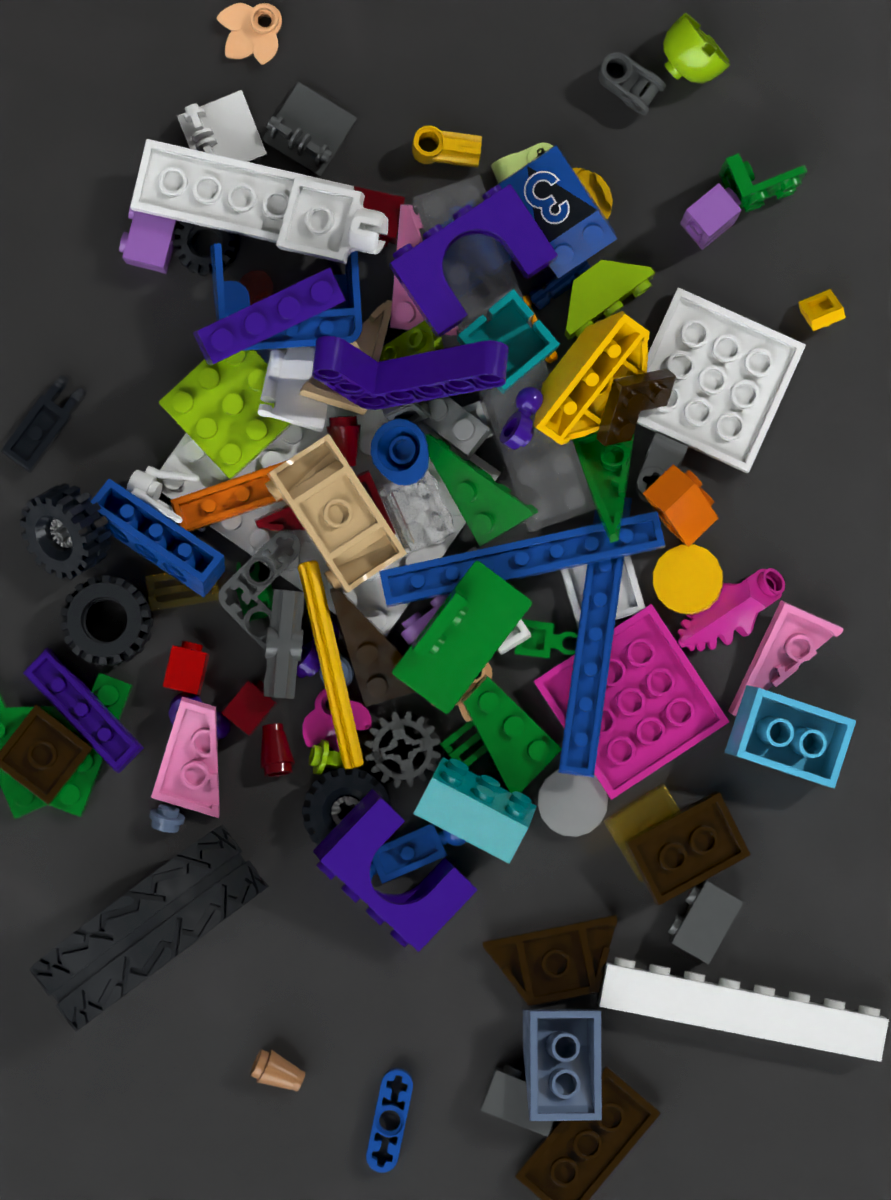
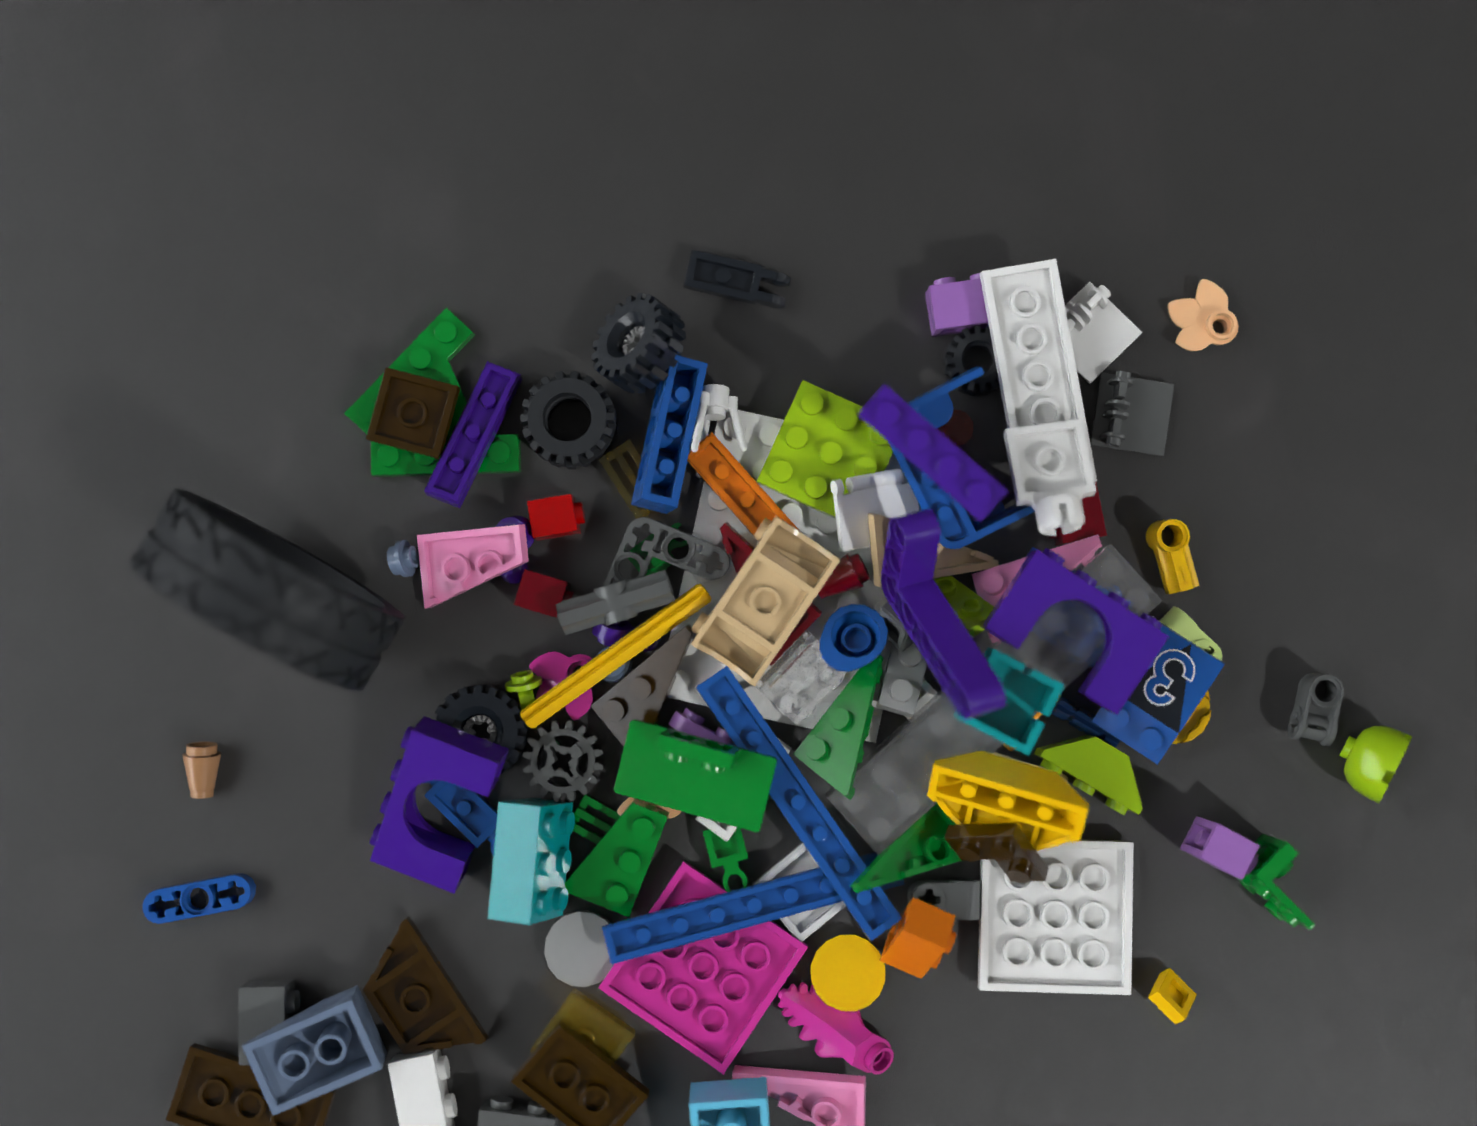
camera: 70 degrees right, 0 degrees up
(275, 751) = (511, 636): dark red cone -> none
(518, 428) = (926, 746): dark purple plate -> none

